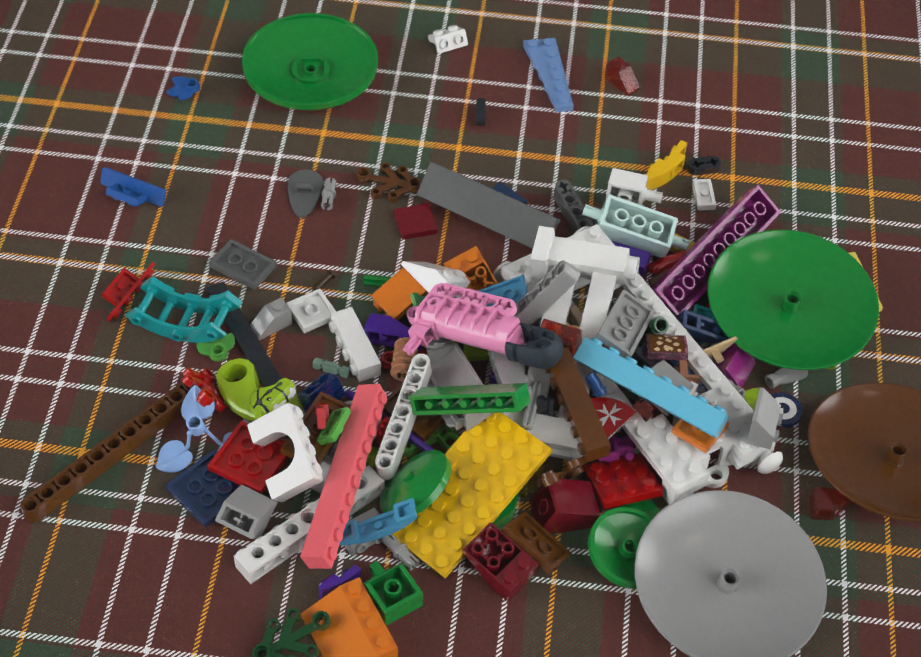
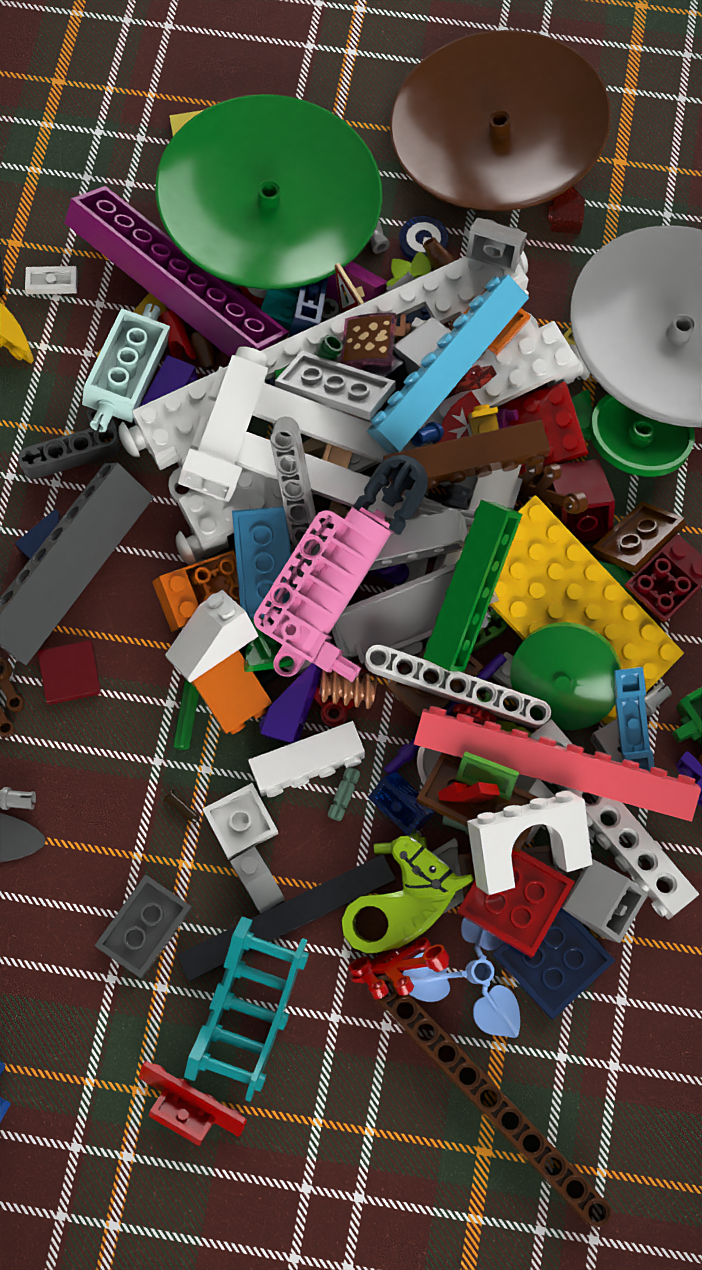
camera: 85 degrees left, 20 degrees up
(219, 346) = (305, 977): bright green plate -> none
(570, 336) = (363, 463): clear red slope -> none
(611, 421) = (483, 419): none -> yellow bracket
(631, 187) = (49, 371): white brick -> none

